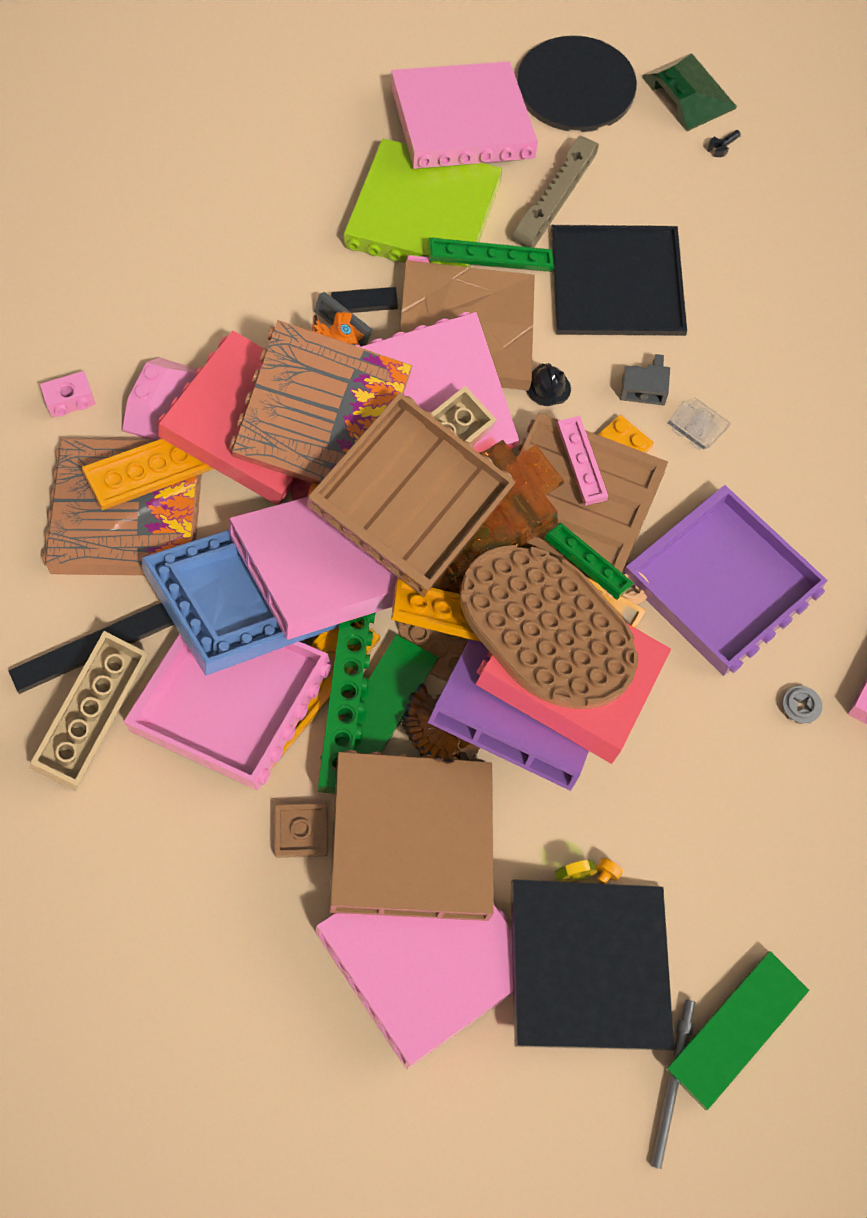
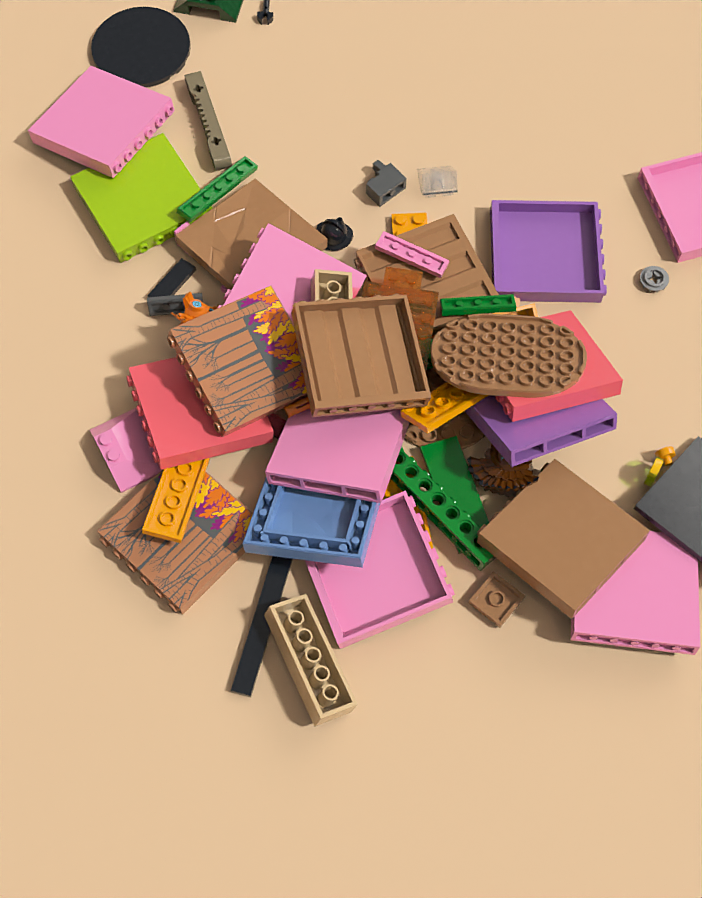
camera: 45 degrees left, 0 degrees up
(57, 390) = (63, 493): bright pink brick -> none
(618, 280) = (299, 141): black tile -> none

